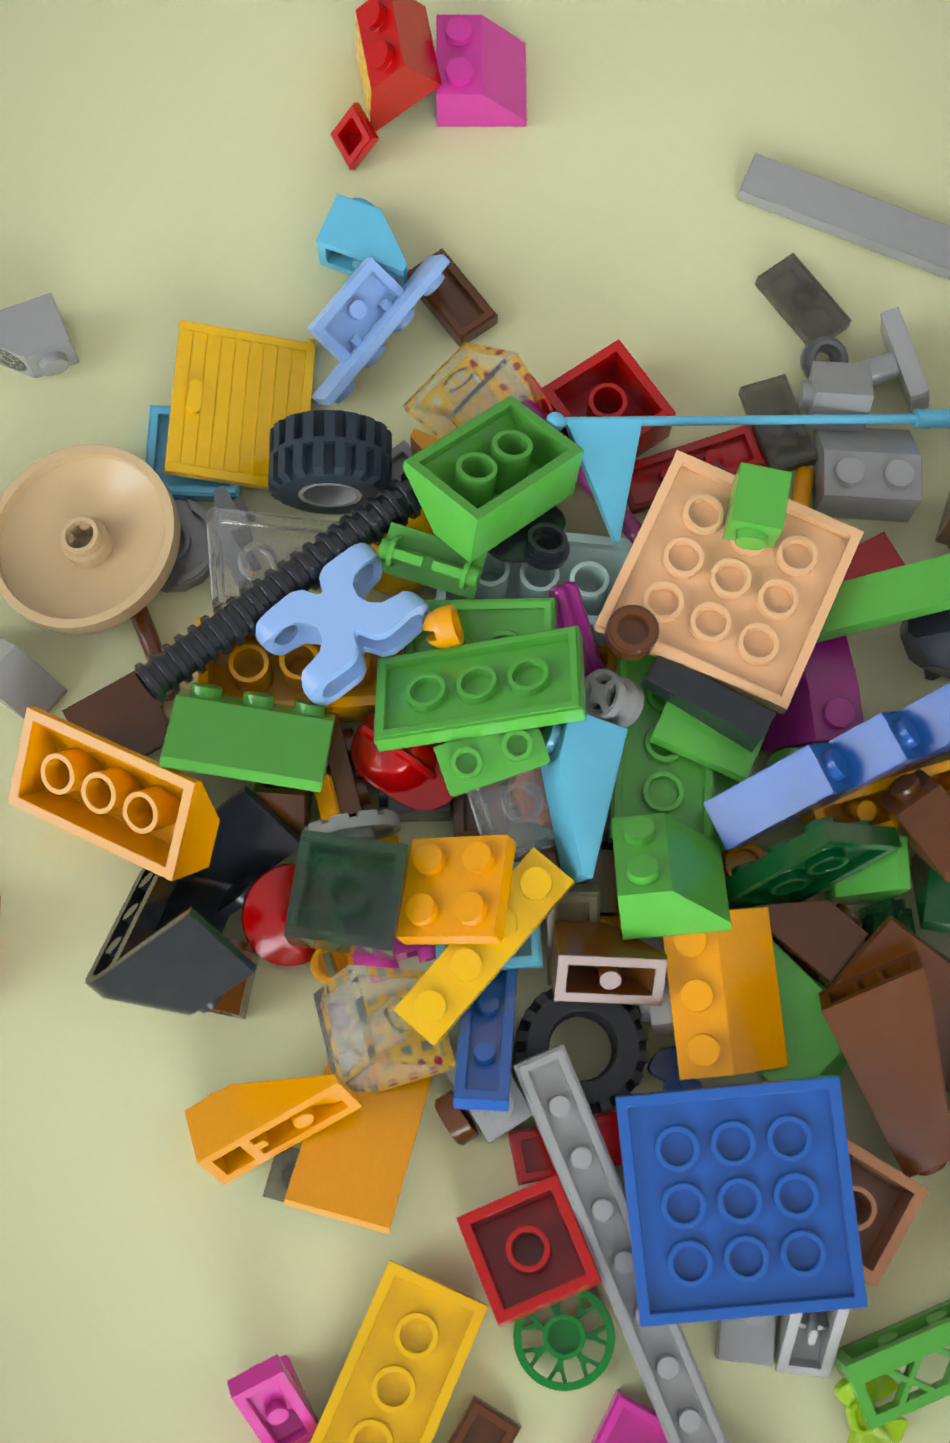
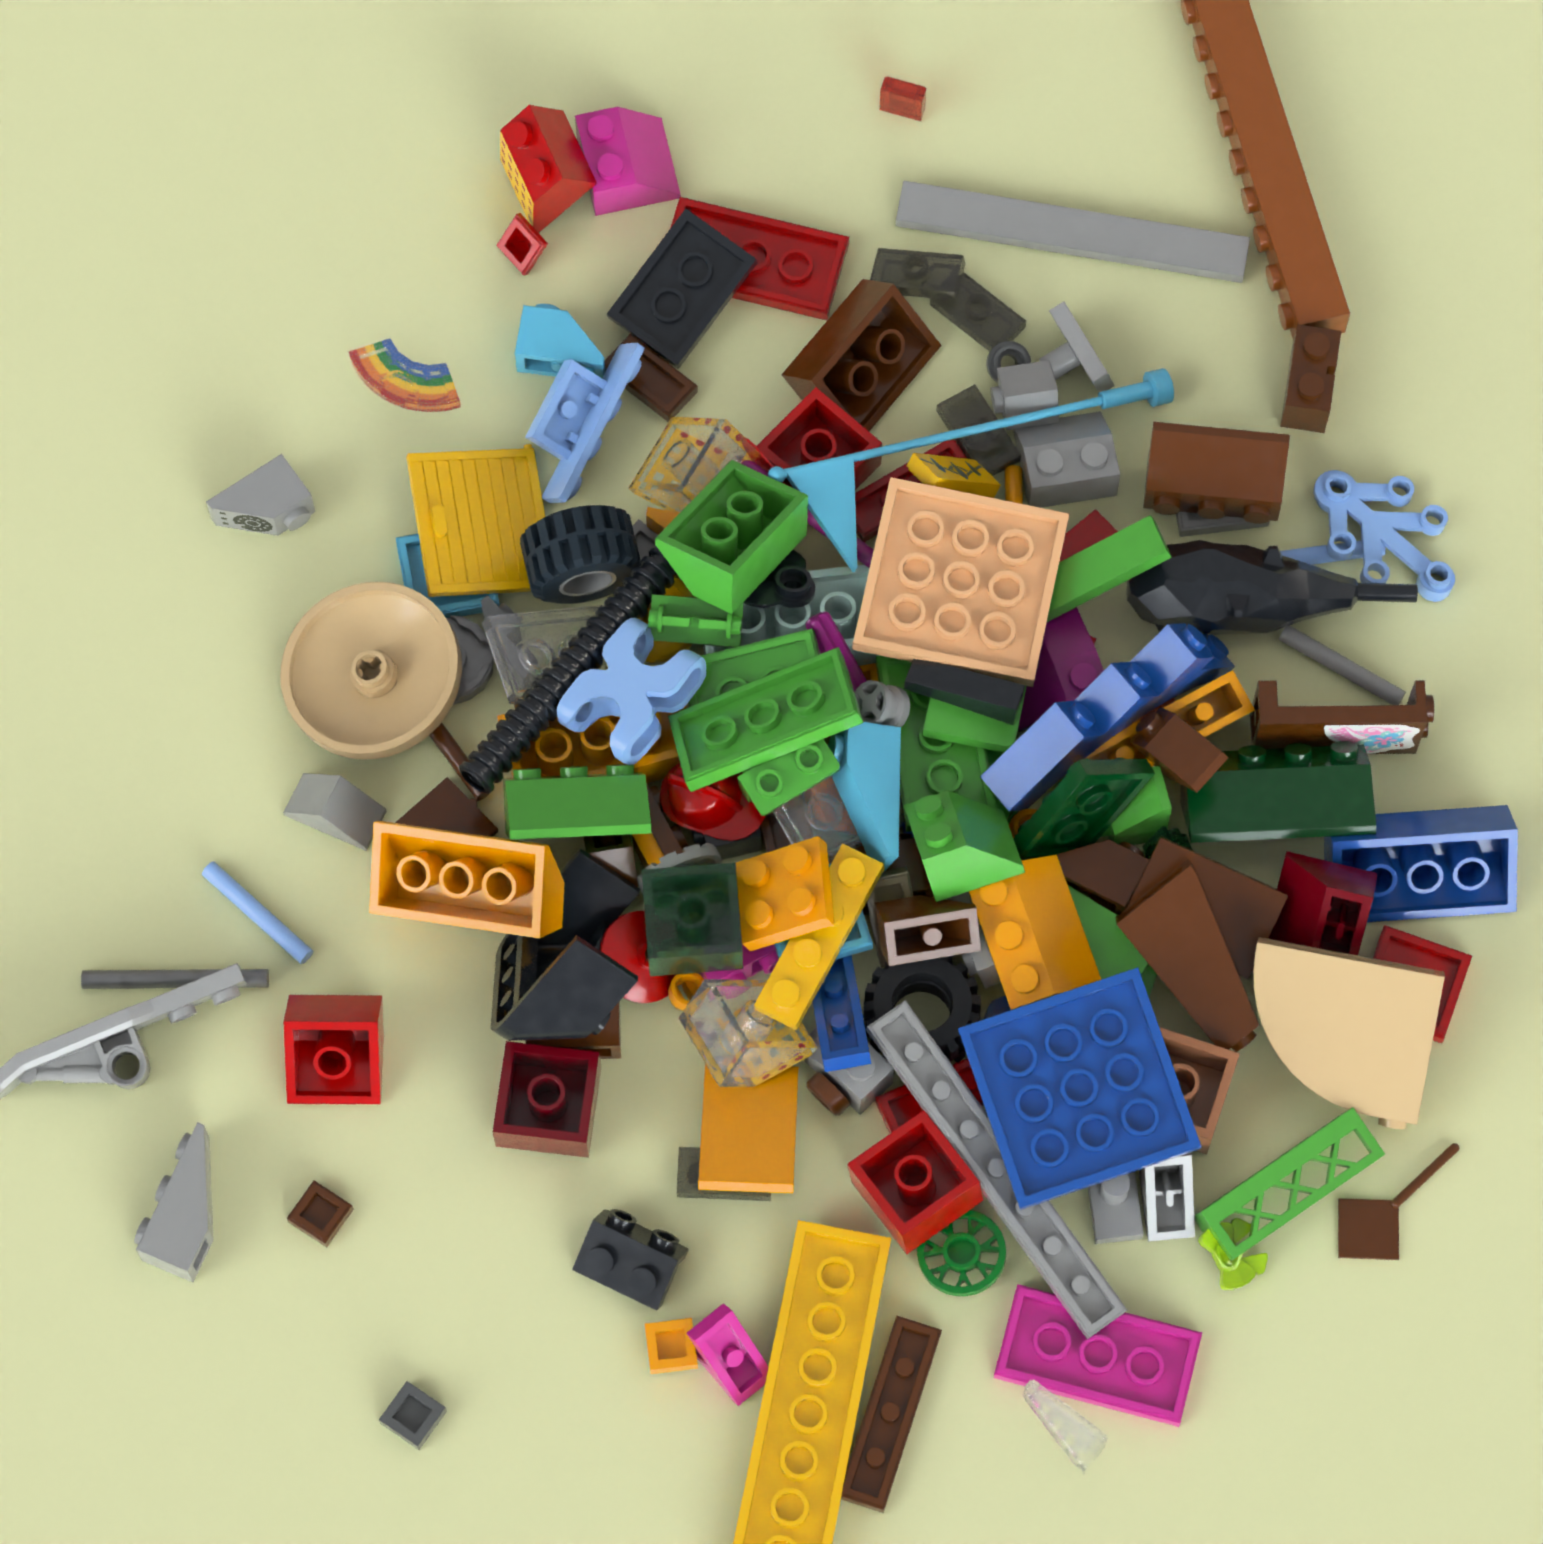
camera: 10 degrees left, 5 degrees down
(145, 1060) = (547, 1099): none -> dark red brick
(195, 1257) = (630, 1257): none -> black bracket
(202, 249) = (404, 381): none -> clear tile
(208, 1373) = (670, 1346): none -> light orange plate
(261, 1119) = (664, 1123): light orange slope -> none
(445, 626) = (723, 673): light orange hinge -> none
(505, 211) = (682, 288): none -> black plate
(585, 200) = (795, 263): none -> red tile
(631, 632) = (885, 643): reddish brown tile -> none
(678, 316) = (865, 352): none -> reddish brown slope
(729, 453) = (953, 474): none -> yellow tile
(749, 249) = (920, 272): none -> clear smoke plate
(757, 506) = (970, 512): bright green brick -> none
(773, 71) = (903, 98): none -> clear red tile

